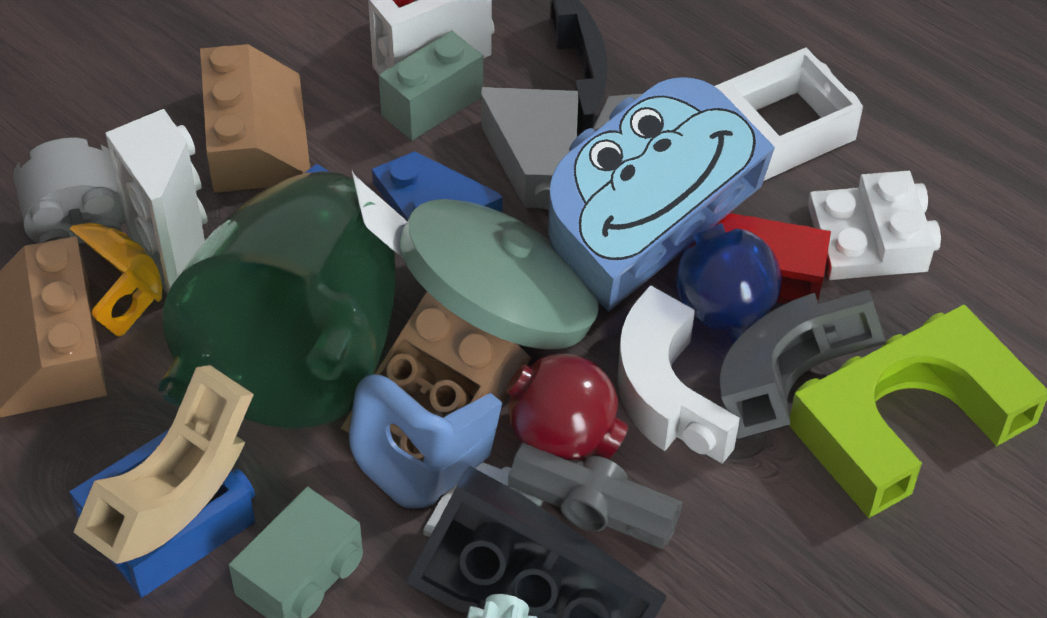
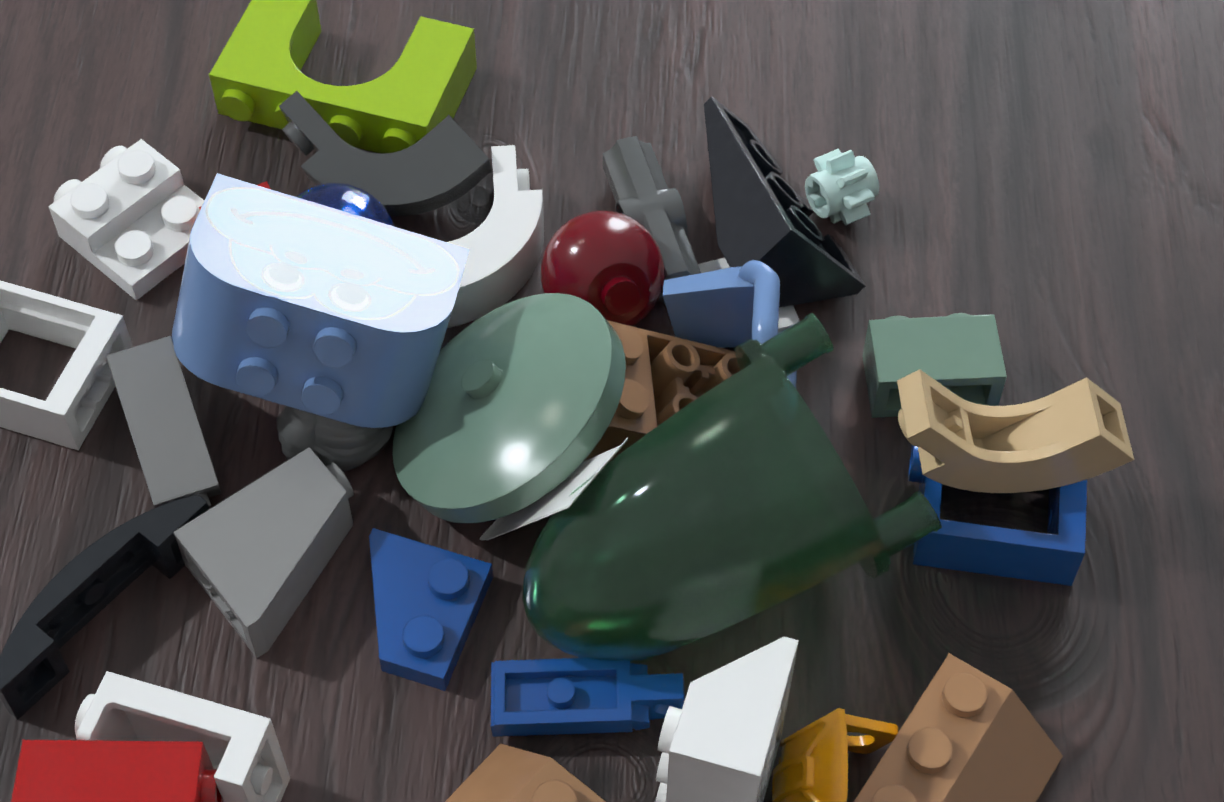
camera: 130 degrees left, 5 degrees up
(431, 85) = (300, 698): sand green brick -> none

